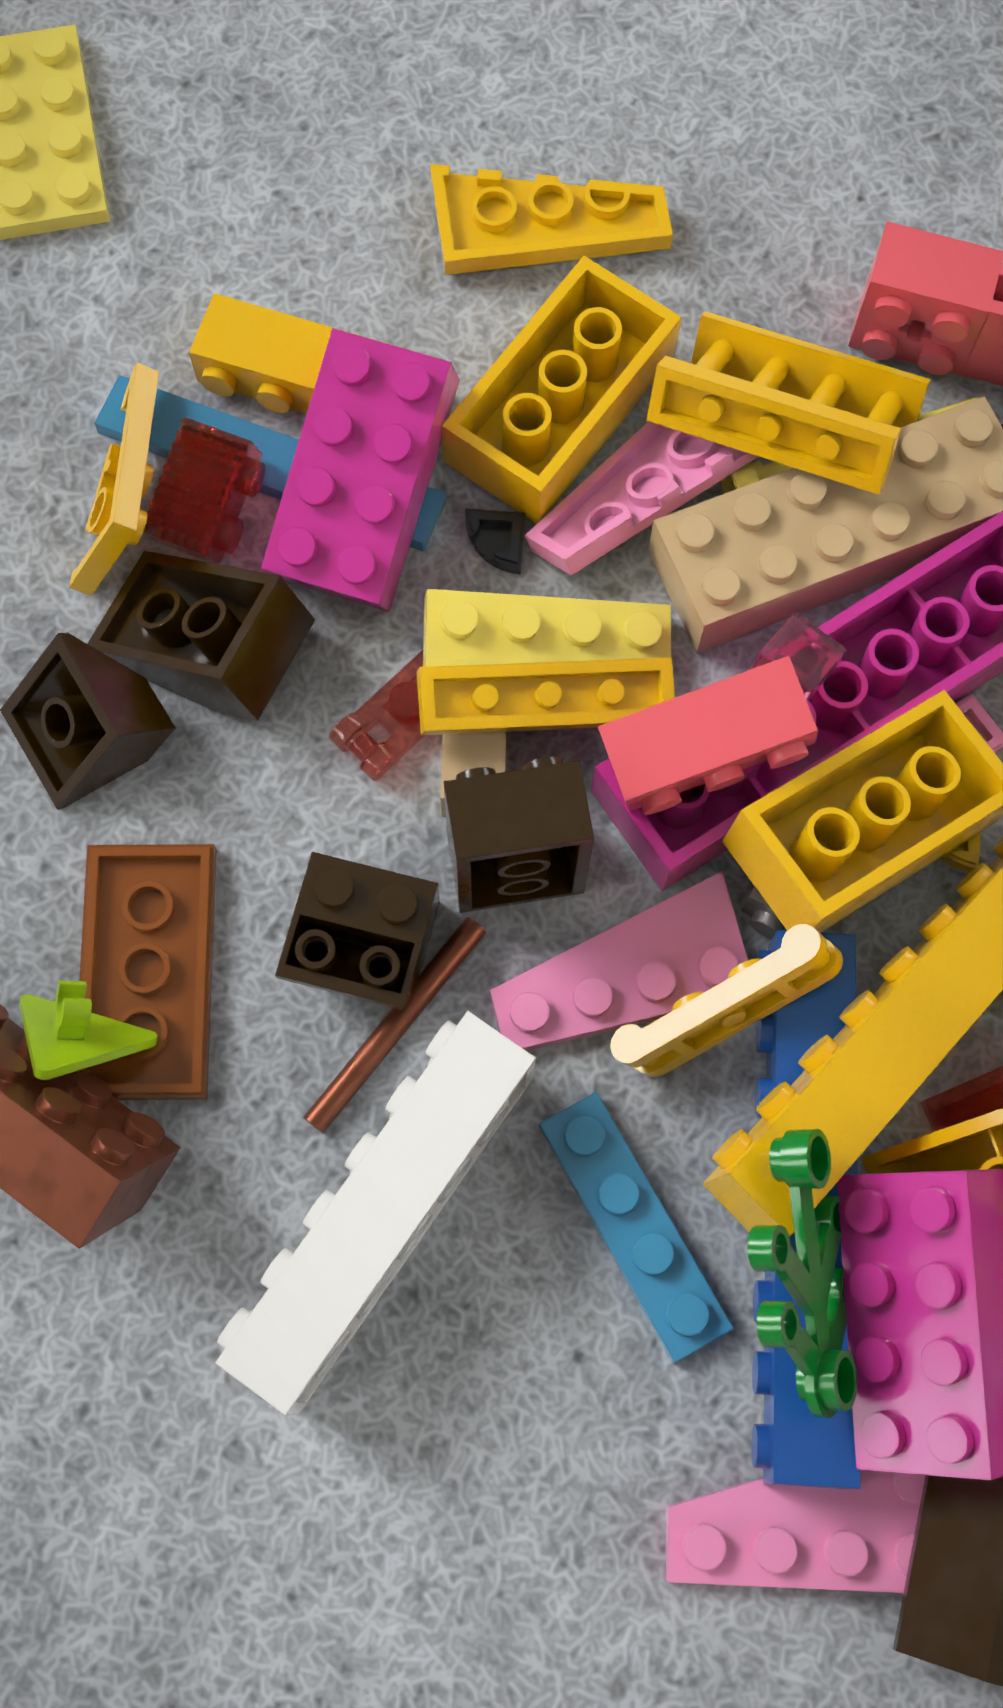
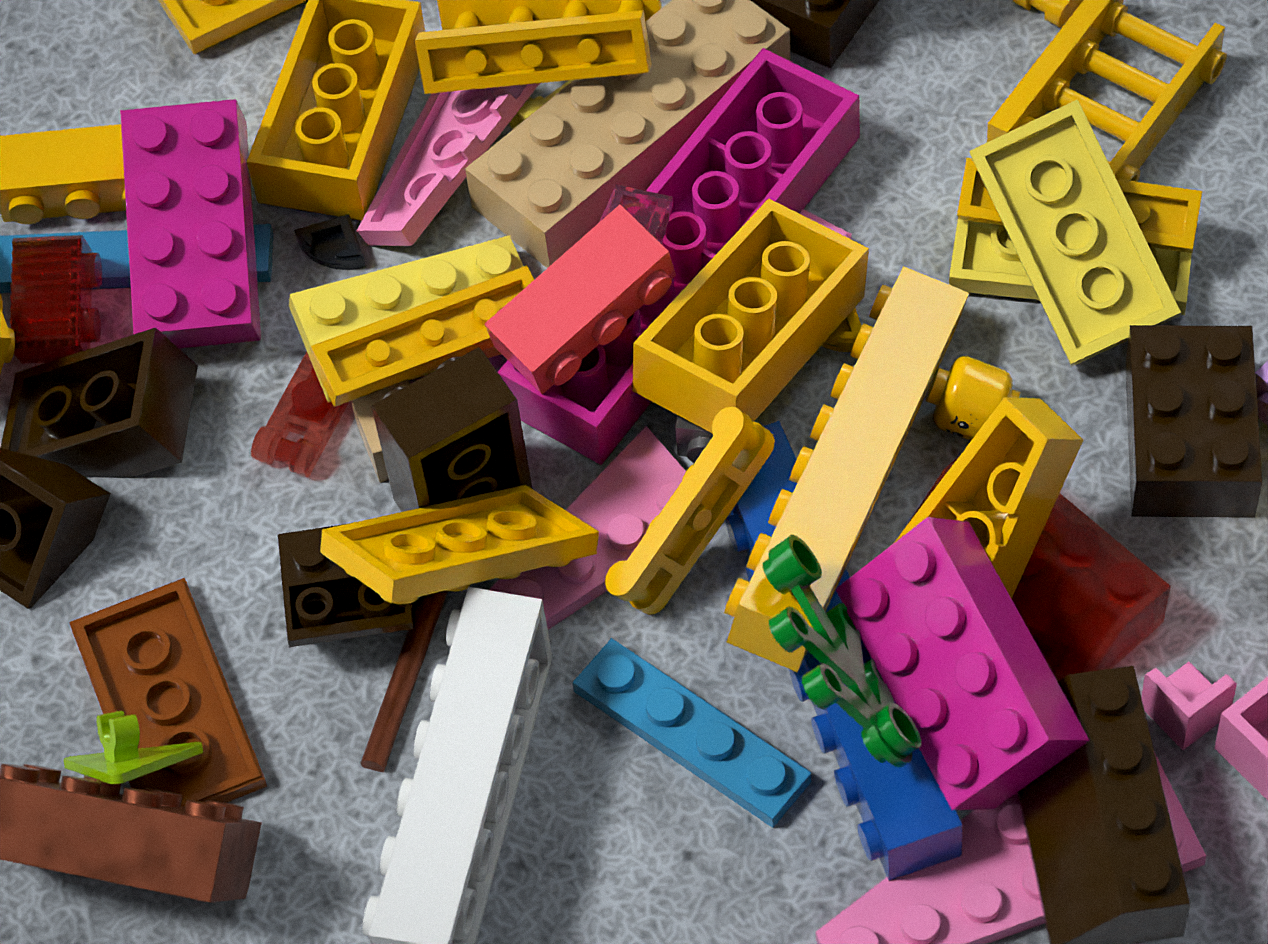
camera: 15 degrees left, 15 degrees down
(478, 949) = (458, 543): none -> yellow plate

